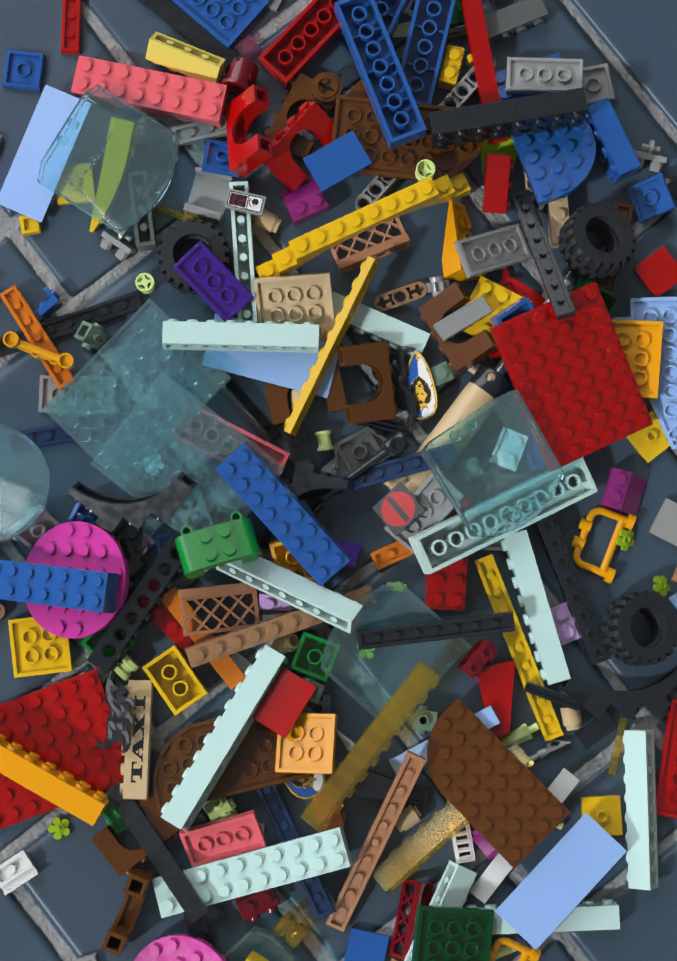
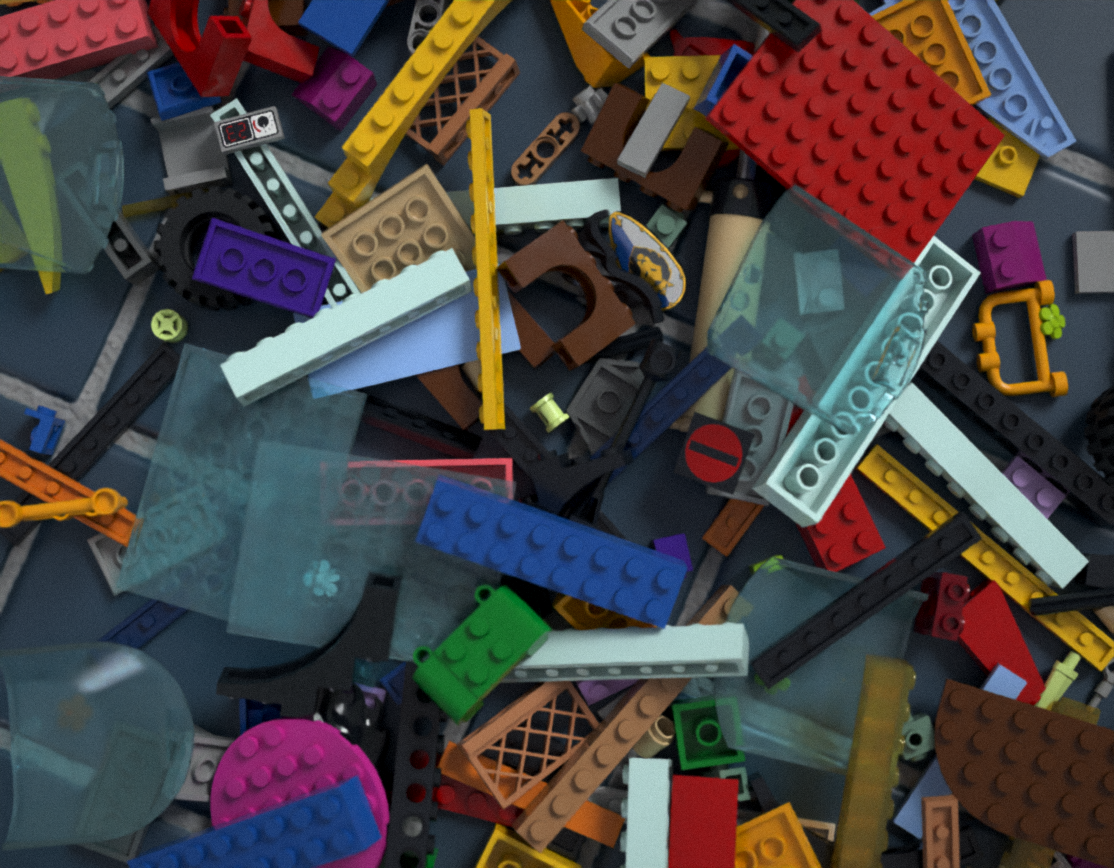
camera: 30 degrees left, 0 degrees up
(91, 335) = (130, 443): sand green brick -> none
(111, 239) = (85, 288): light grey hips -> none
(268, 221) = (298, 144): tan brick -> none

